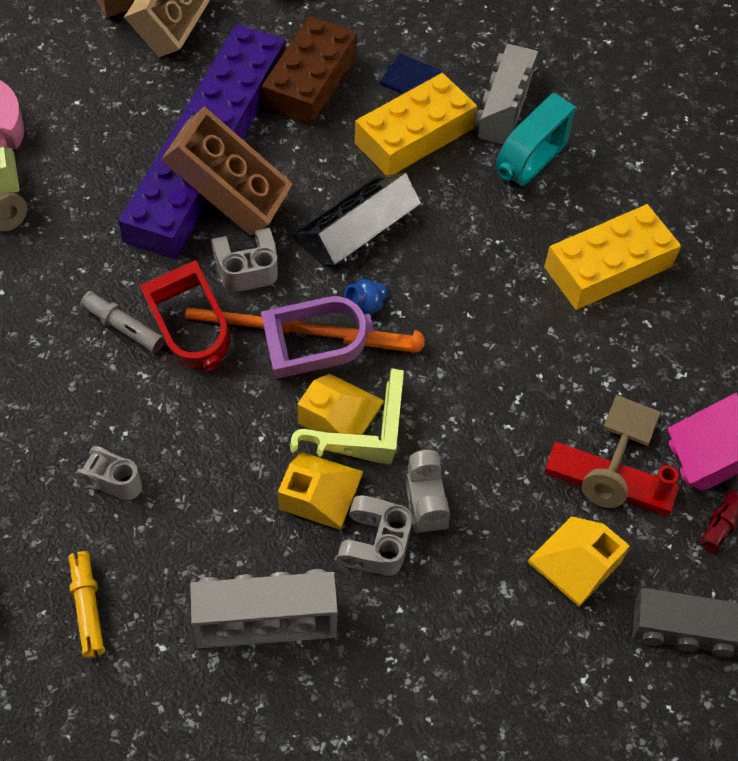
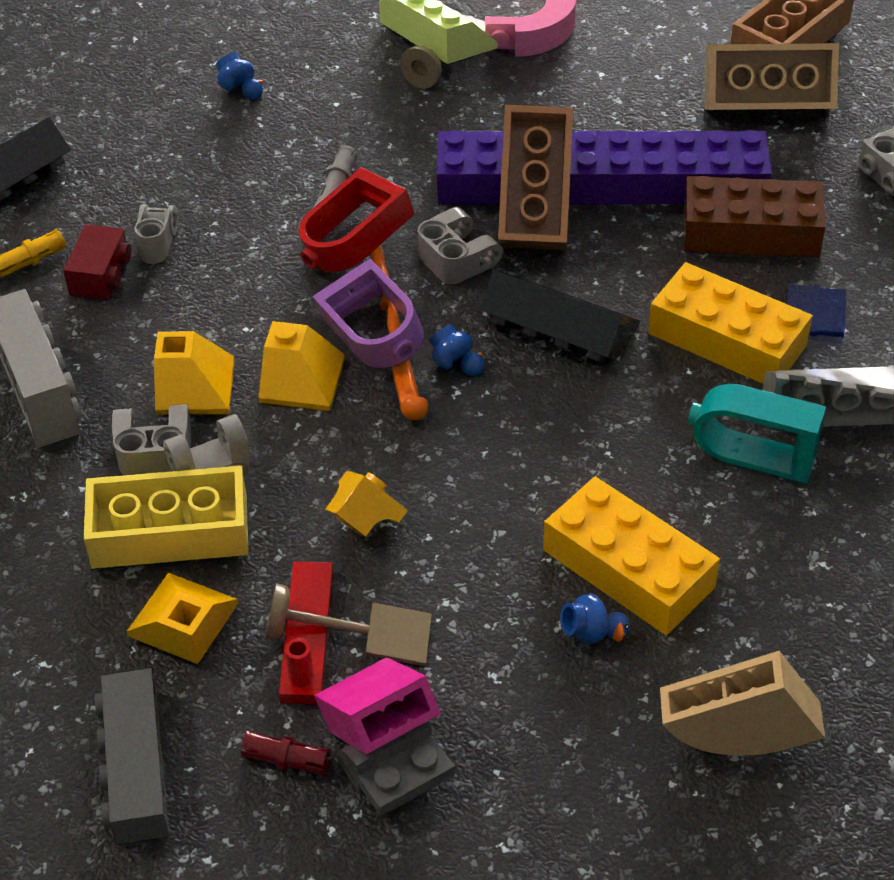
camera: 75 degrees right, 10 degrees down
(130, 530) = (97, 262): none -> dark red brick
(363, 446) = (291, 411): yellowish green hinge -> none
(480, 543) = (166, 517): none -> light yellow brick
(513, 401) = (363, 503): none -> yellow brick
(661, 298) = (589, 620): none -> blue animal

